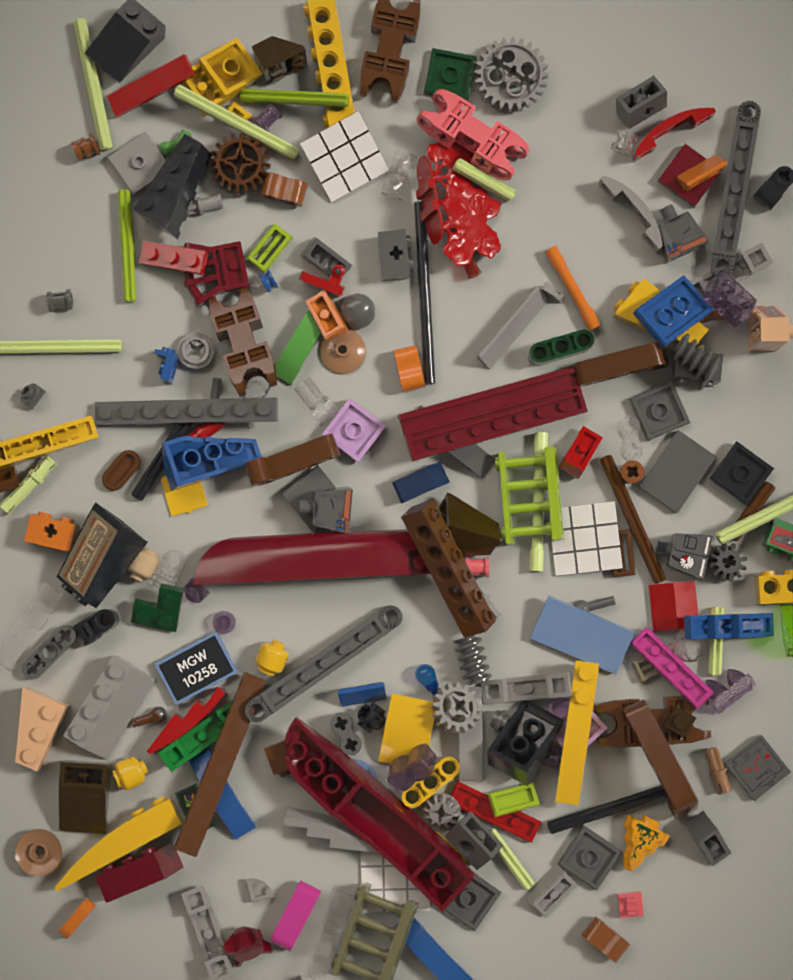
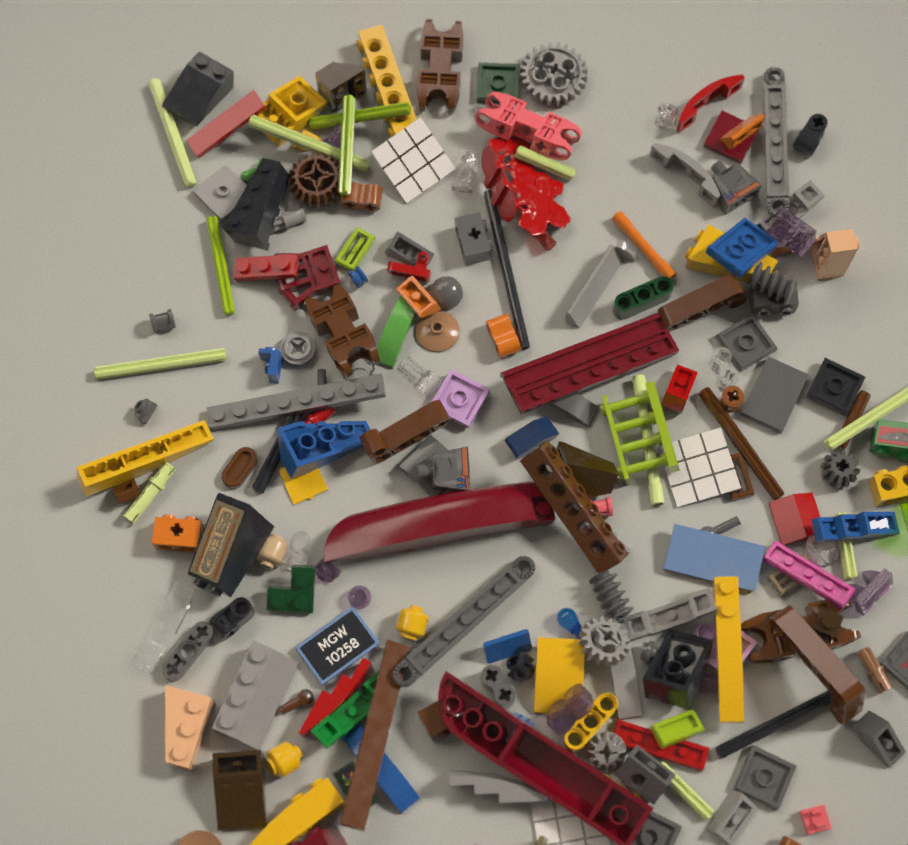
camera: 10 degrees left, 15 degrees down
(85, 147) = (171, 185): dark orange bush -> none
(275, 132) = (346, 145): none -> lime axle
(641, 102) = (676, 79): dark grey brick -> none
(641, 840) = (813, 750): light orange rock -> none
(686, 553) = (800, 466): dark grey torso -> none

